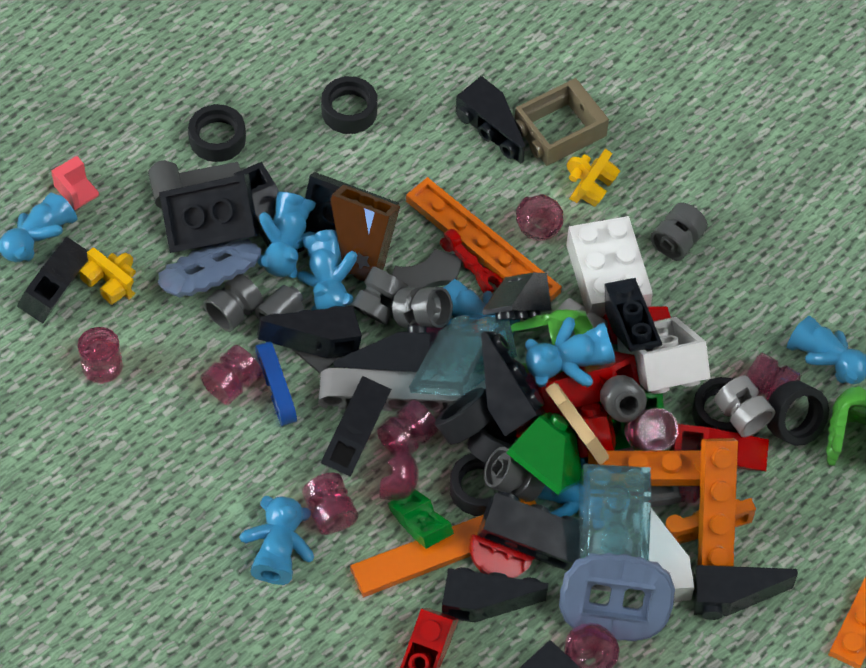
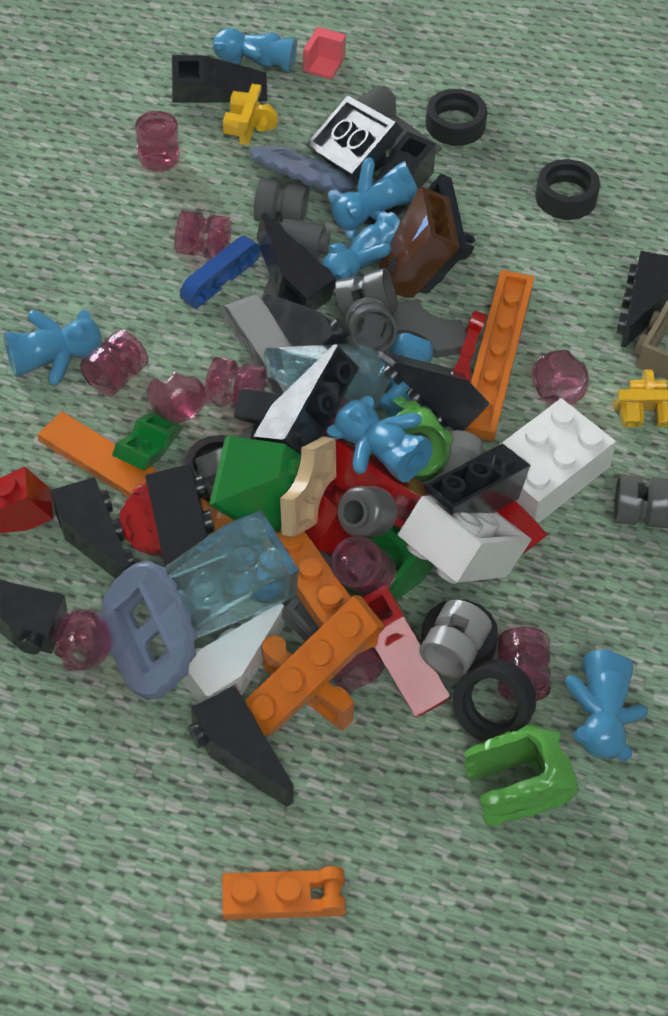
camera: 60 degrees right, 5 degrees down
(355, 426) = (197, 339): black slope -> none

